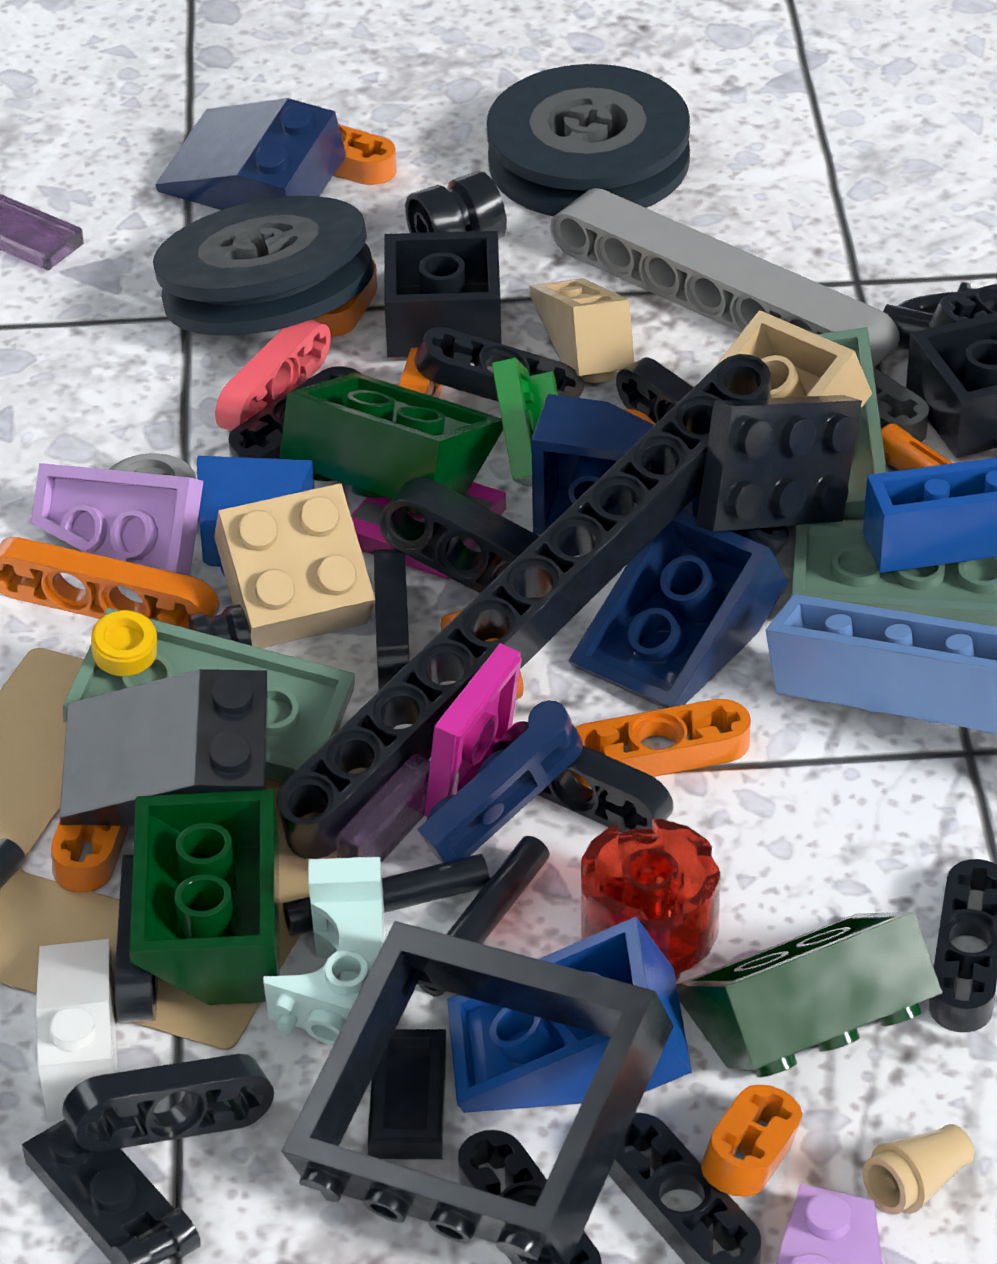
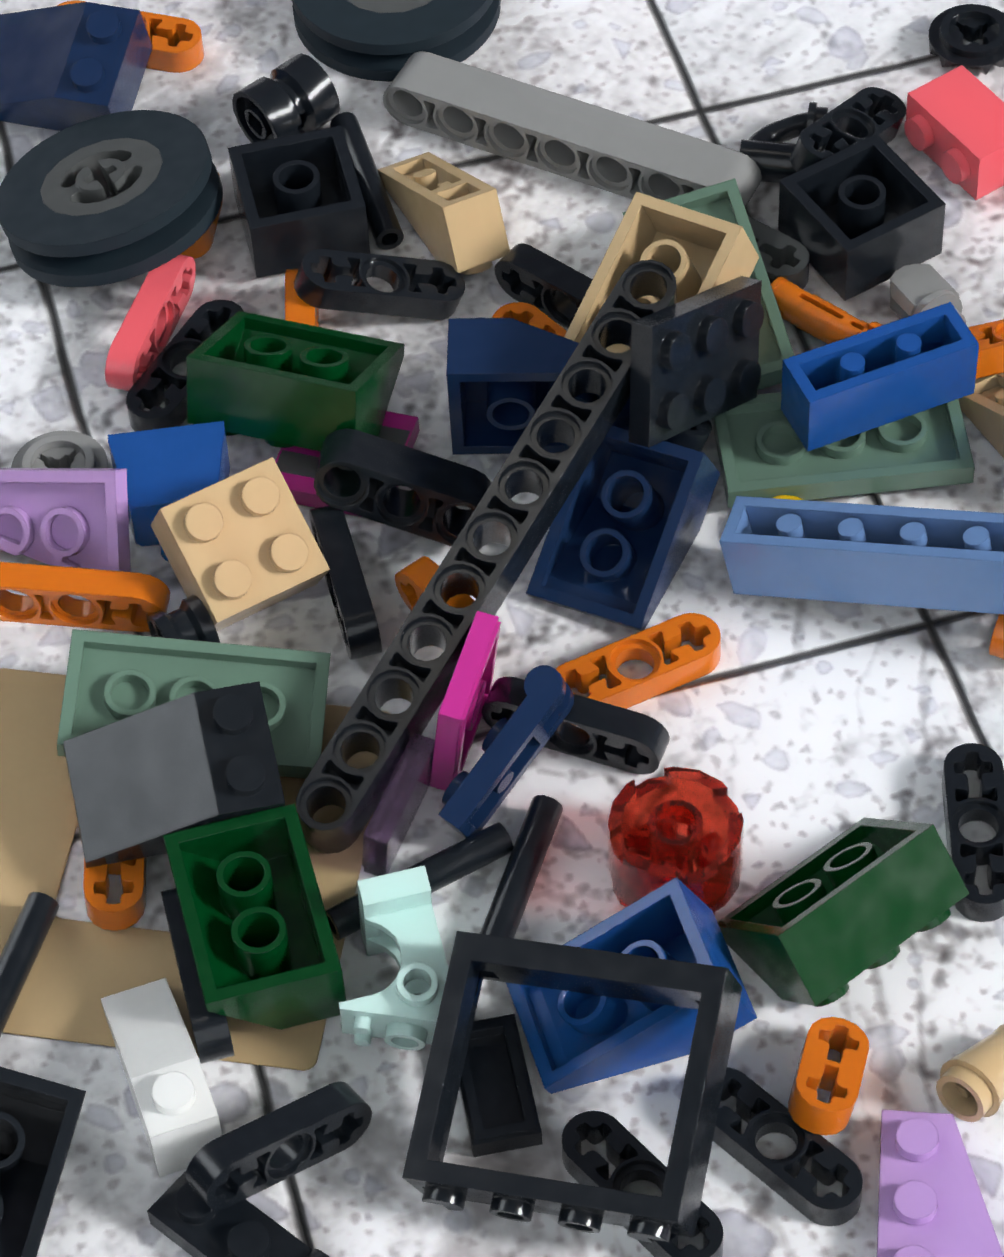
camera: 10 degrees left, 10 degrees up
(124, 643) = (100, 666): yellow tile -> none
(516, 293) = (379, 209): none -> black piece
(520, 405) = (423, 329): green slope -> none

